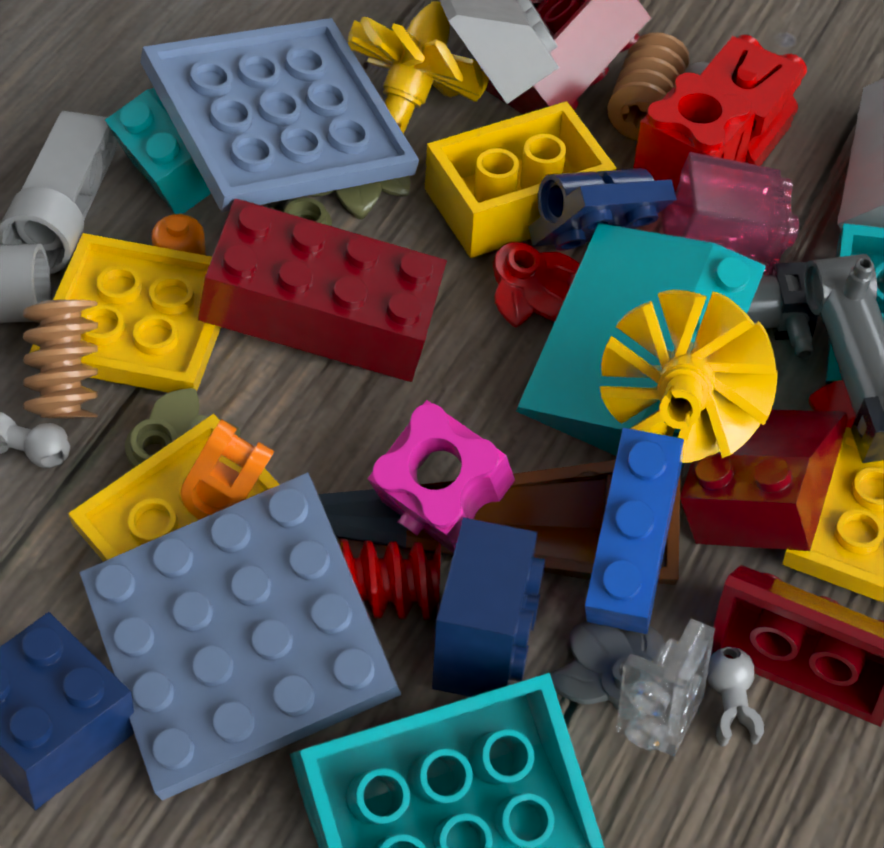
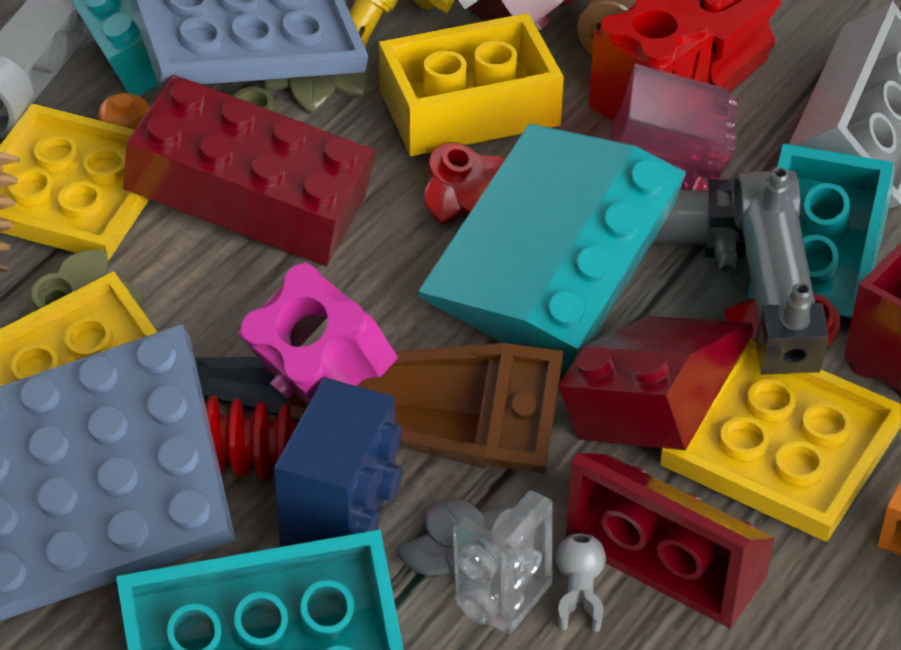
camera: 10 degrees right, 5 degrees down
(213, 484) = (93, 329): orange plate -> none
(578, 201) = (514, 101): dark blue plate -> none
(634, 530) = (499, 409): blue brick -> none
(707, 387) = (582, 285): yellow piece -> none

